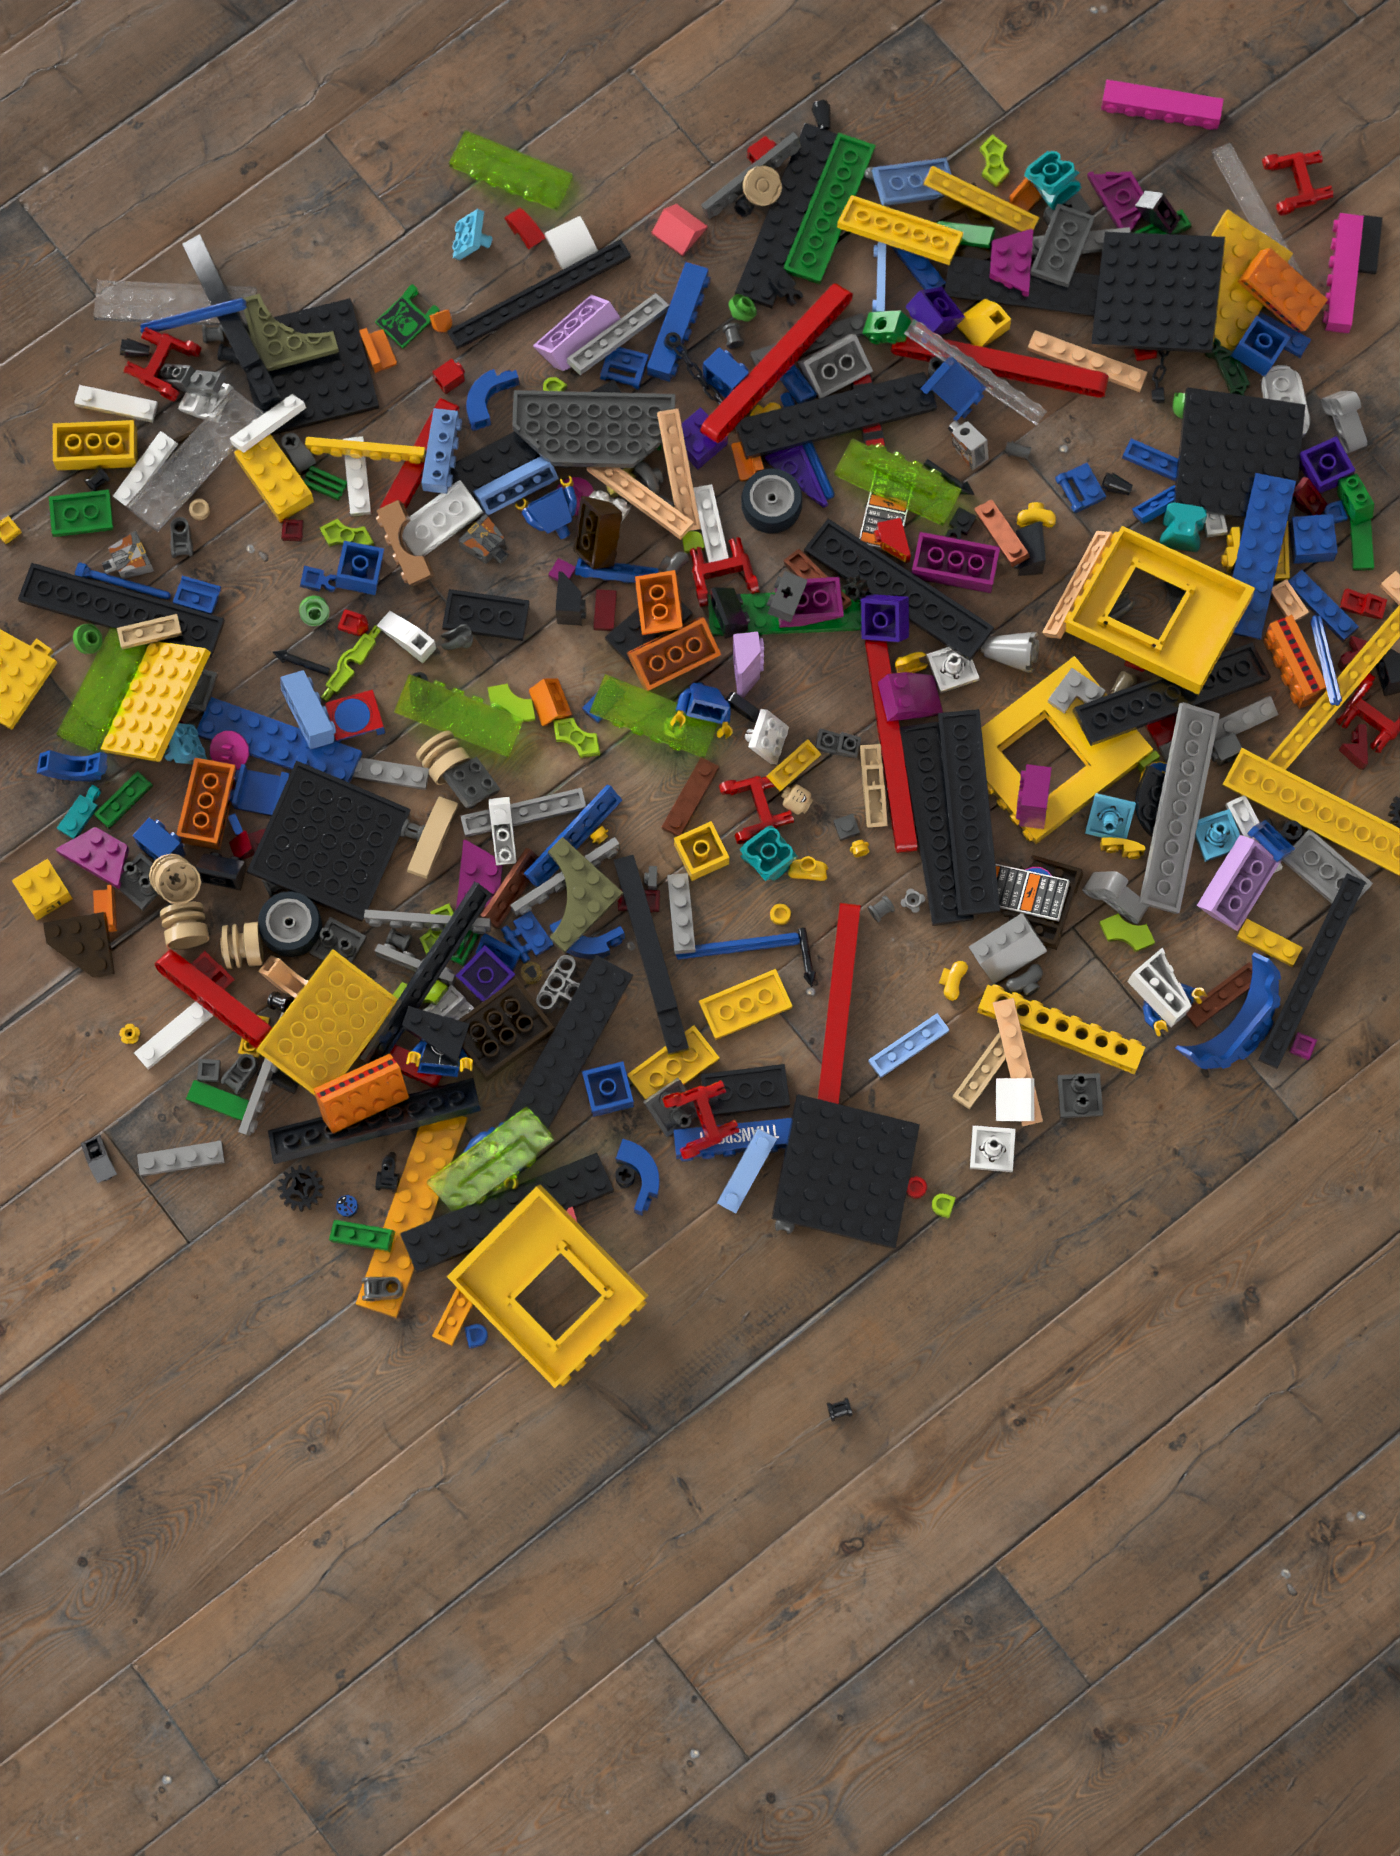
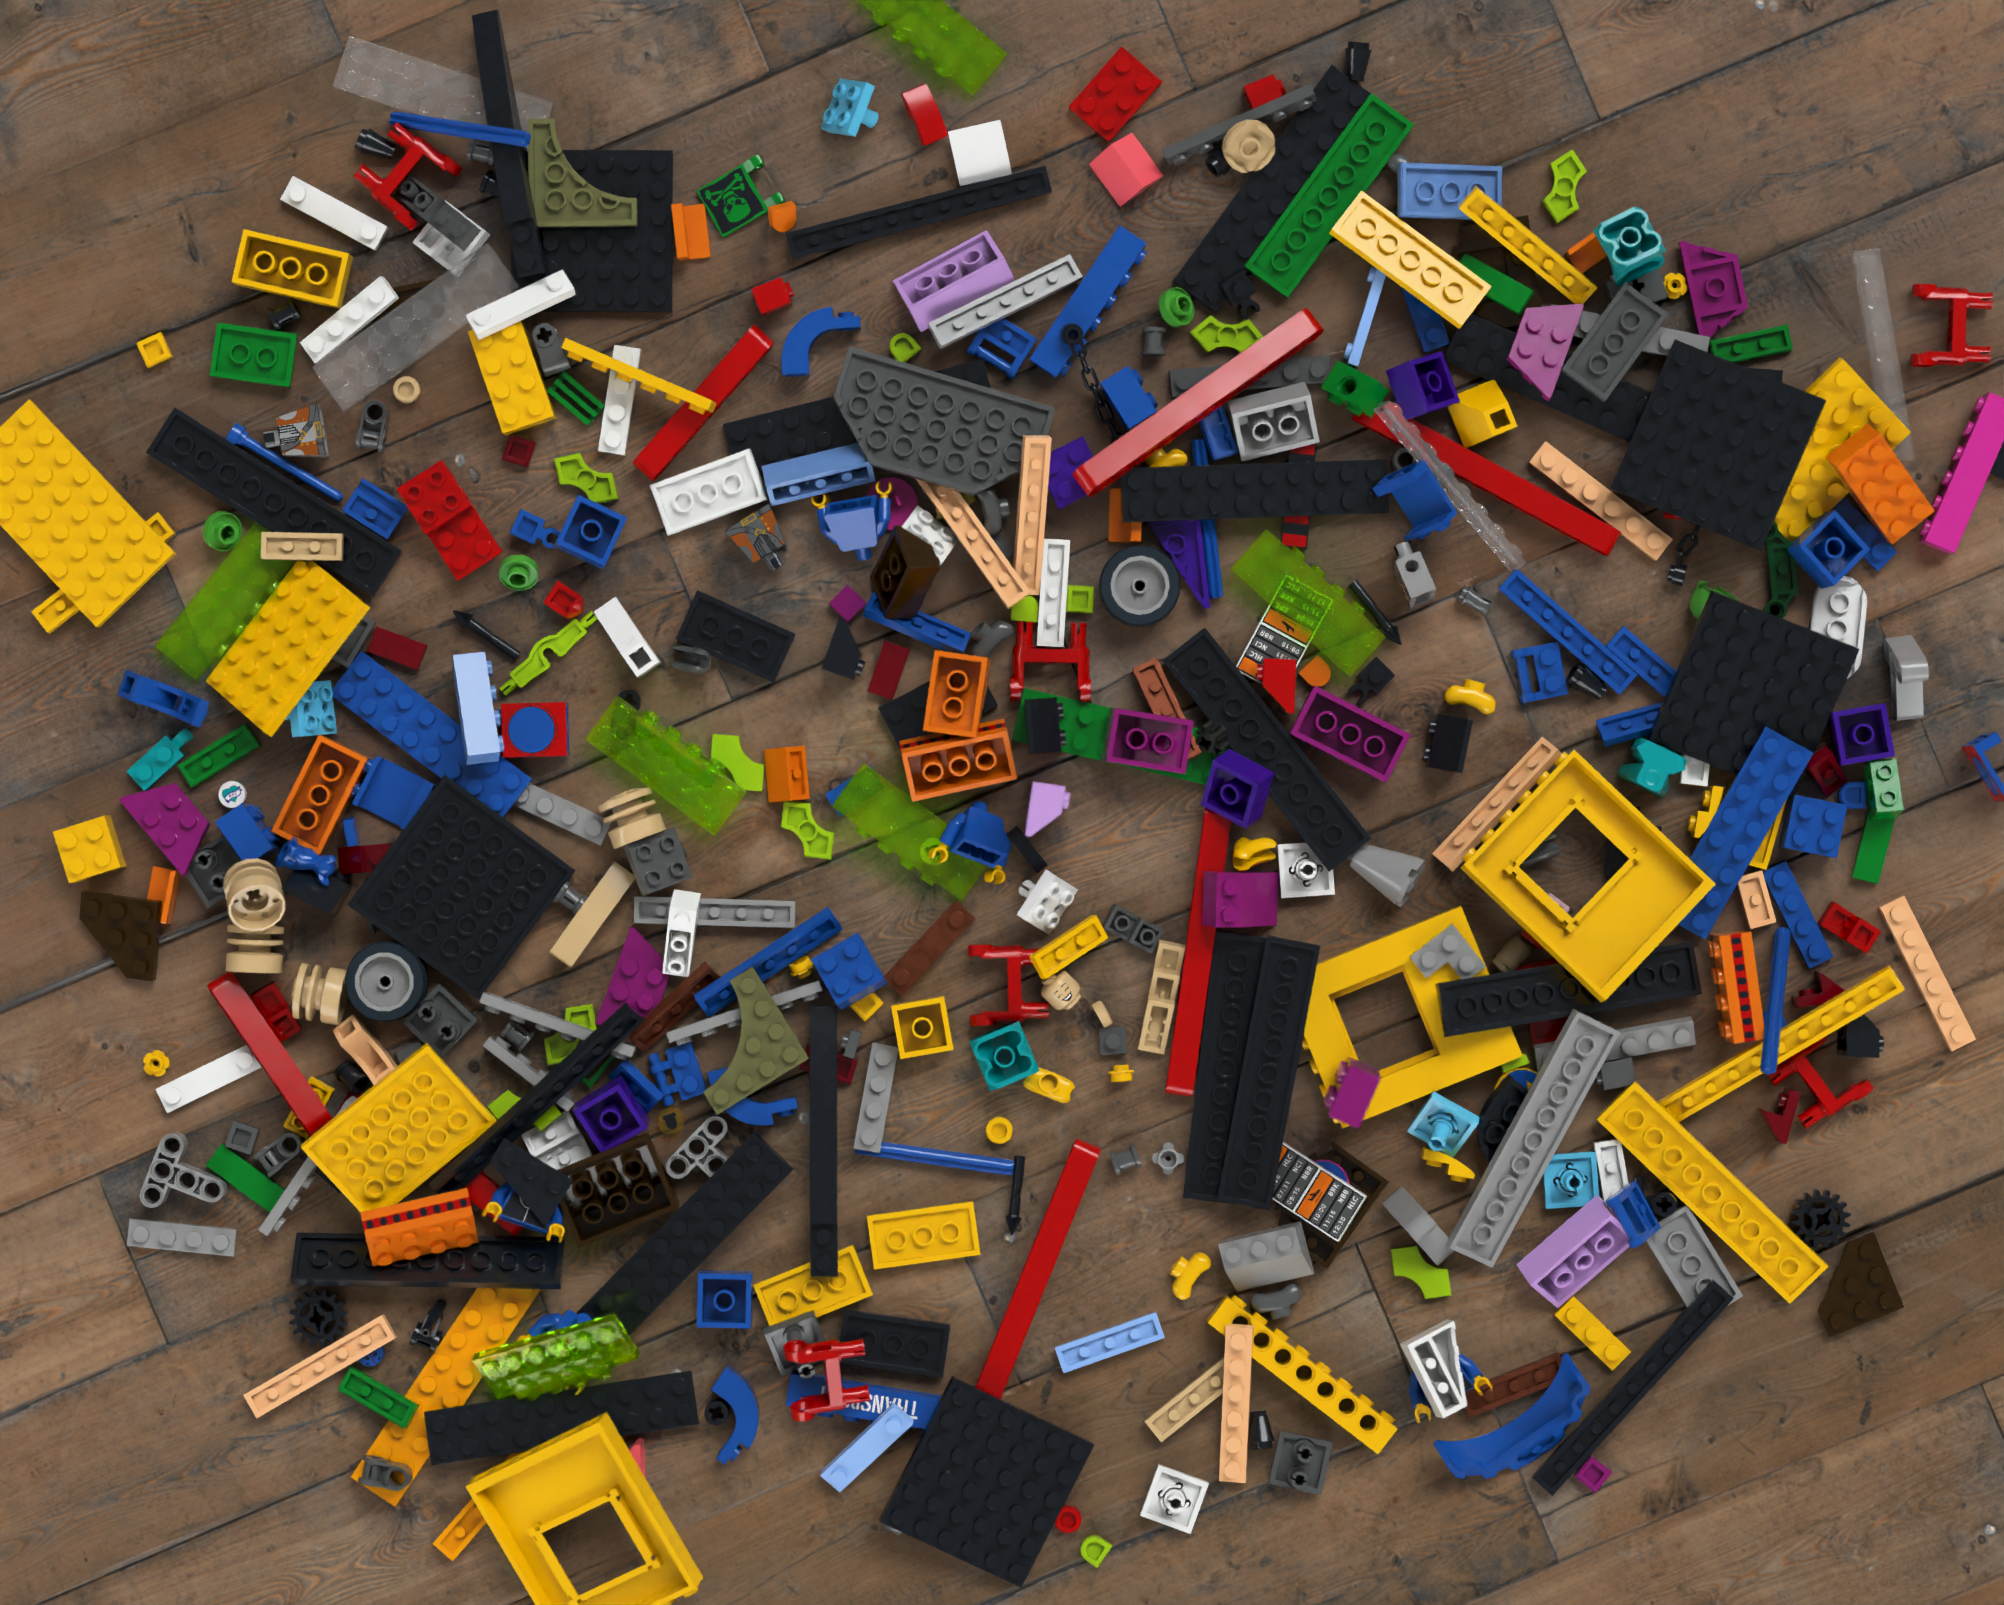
camera: 15 degrees right, 15 degrees up
(98, 1159) = (80, 1212): black slope -> none
(137, 821) = (232, 794): none -> white tile
(164, 1114) = (177, 1171): none -> light grey beam
(203, 848) = (301, 858): none -> blue animal
(229, 748) = (366, 730): dark pink piece -> none
(237, 689) = (397, 648): none -> dark red tile
(253, 585) = (449, 520): none -> red piece
(311, 1224) = (320, 1366): none -> light nougat plate
(394, 520) = (660, 549): medium nougat arch -> none
(441, 450) = (732, 406): medium blue brick -> none
(476, 1335) = (486, 1553): blue tile -> none
(636, 825) = (849, 971): none -> blue brick
(653, 849) = (867, 1006): none -> yellow tile
(657, 182) = (1115, 94): none -> red plate
(731, 525) = (1080, 599): none -> lime tile
(777, 321) = (1214, 334): none -> lime tile
(785, 607) = (1132, 730): dark grey brick -> none
(833, 808) = (1102, 1013): none -> tan tile
(916, 527) = (1316, 672): none -> orange tile
(1002, 533) = (1419, 712): plate -> none
(1015, 1099) = (1218, 1451): white slope -> none
(1043, 1082) = (1260, 1431): none -> black cone
(1091, 453) = (1567, 631): none -> blue plate
(1098, 204) = (1679, 279): none -> yellow plate
(1158, 211) = (1753, 324): black slope -> none
(1162, 104) = (1807, 170): dark pink brick -> none

